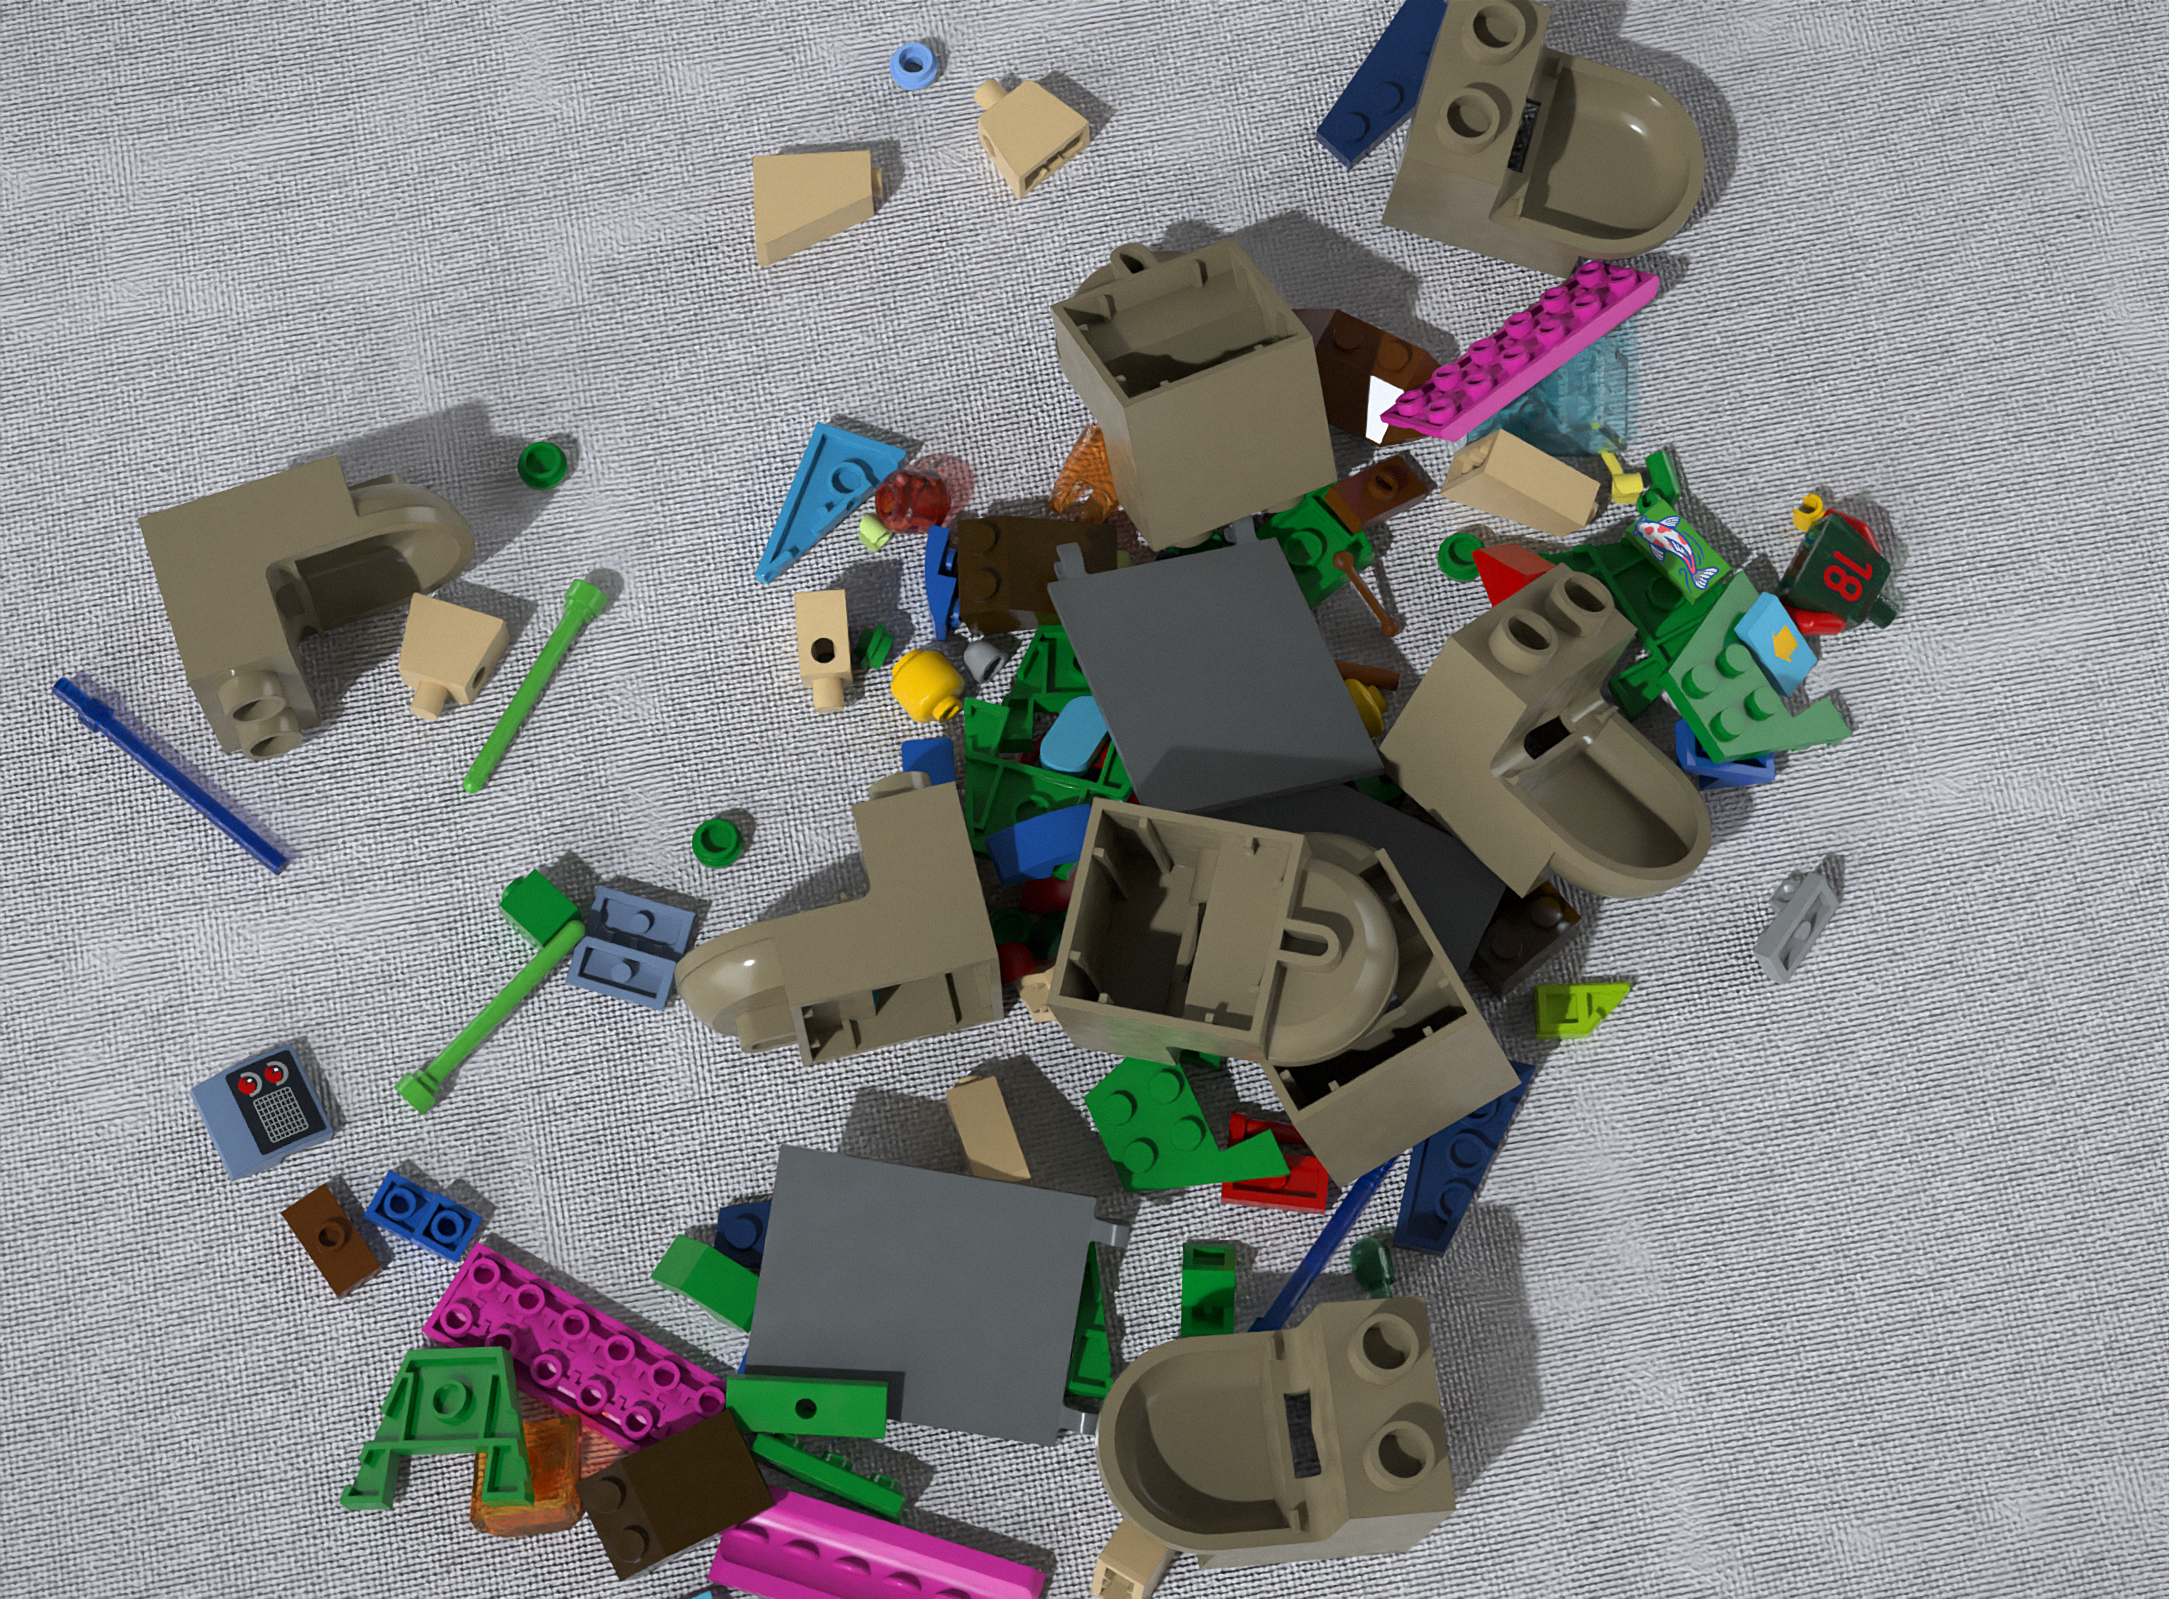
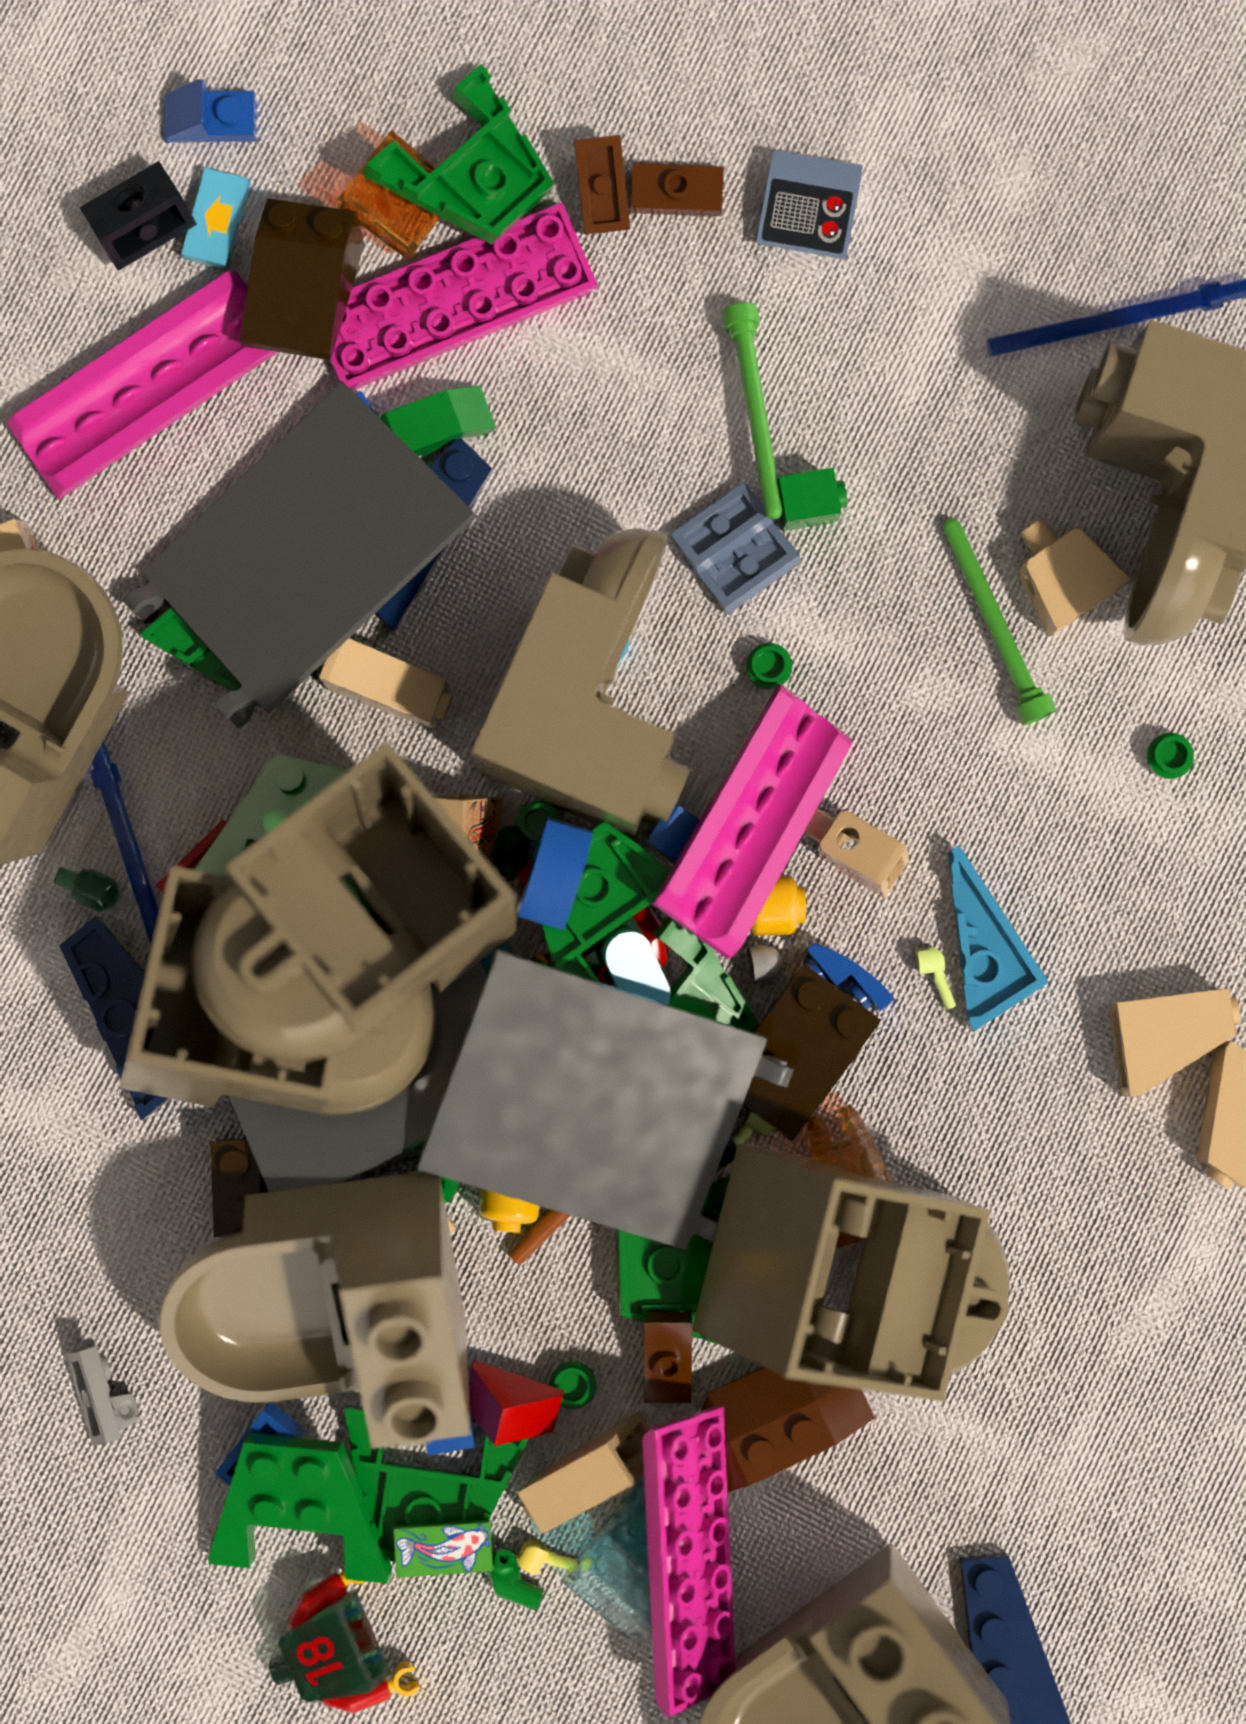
camera: 120 degrees right, 15 degrees up
(379, 1301) = (602, 184): none -> reddish brown hinge
(422, 1217) = (646, 263): blue slope -> none
(787, 302) = (1168, 1033): none -> tan slope
(831, 1475) = (238, 402): green tile -> none
(841, 1407) = (292, 415): green tile -> none
(867, 733) = (753, 823): none -> dark pink plate
(873, 646) = (835, 890): green plate -> none
(912, 501) = (927, 1003): clear red head -> none
(1015, 961) = (506, 803): red hinge -> none
(1028, 132) = (1176, 1328): tan torso -> none
(1207, 1289) = (160, 756): green slope -> none
(1344, 562) = (626, 1285): reddish brown hinge -> none
(1574, 1009) = (167, 1186): lime tile -> none
(1775, 644) = (313, 1561): medium azure tile -> none

